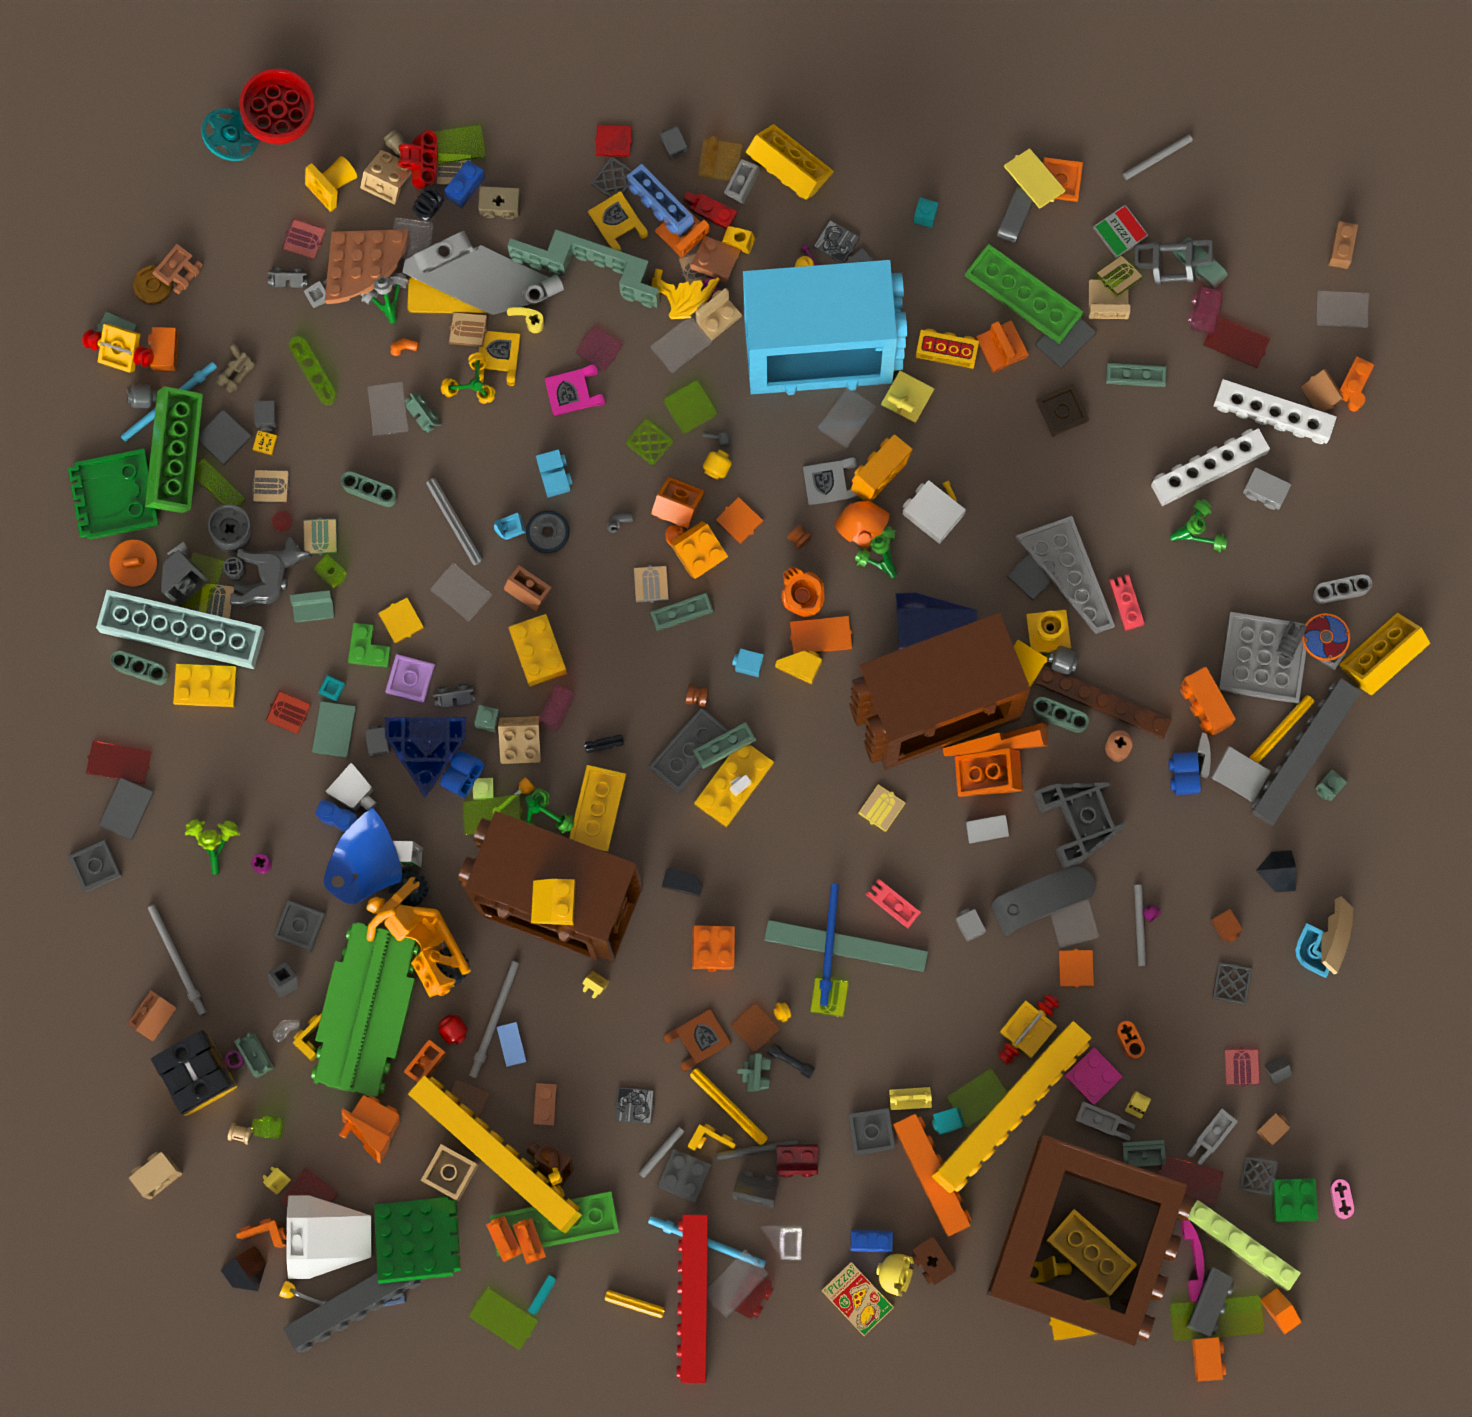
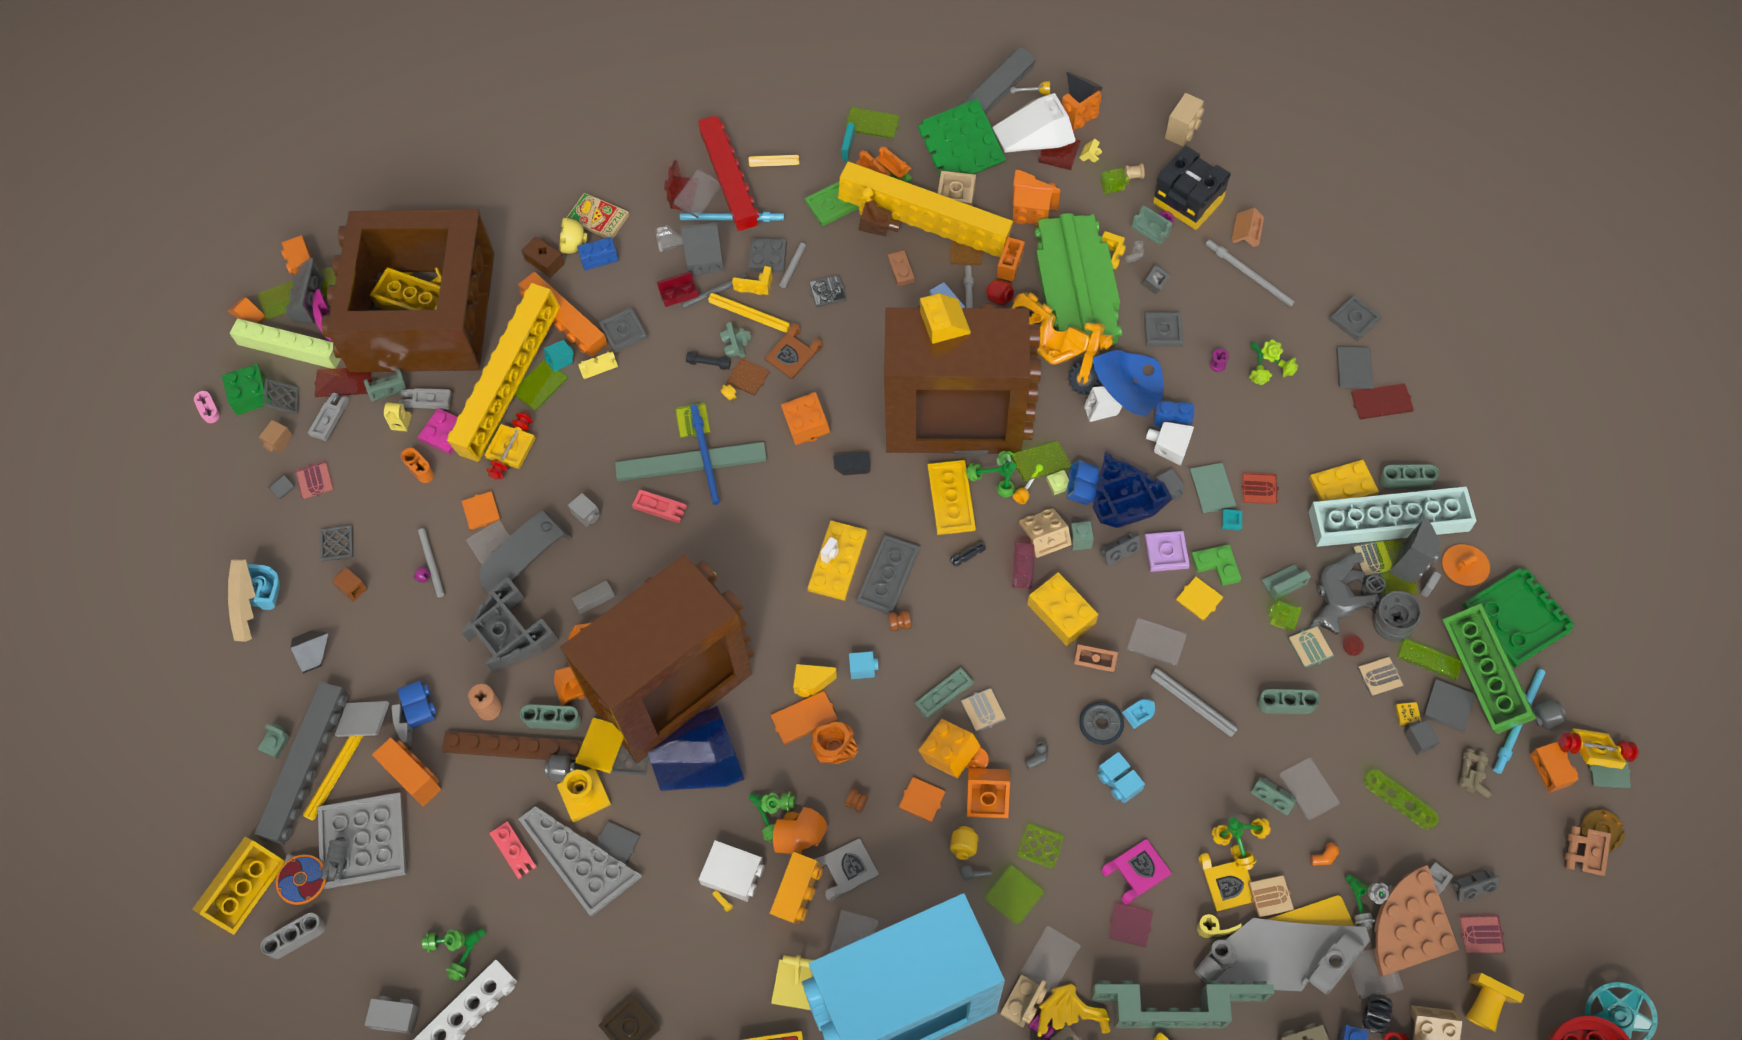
camera: 160 degrees right, 15 degrees down
(724, 745) = (857, 583): sand green tile -> none

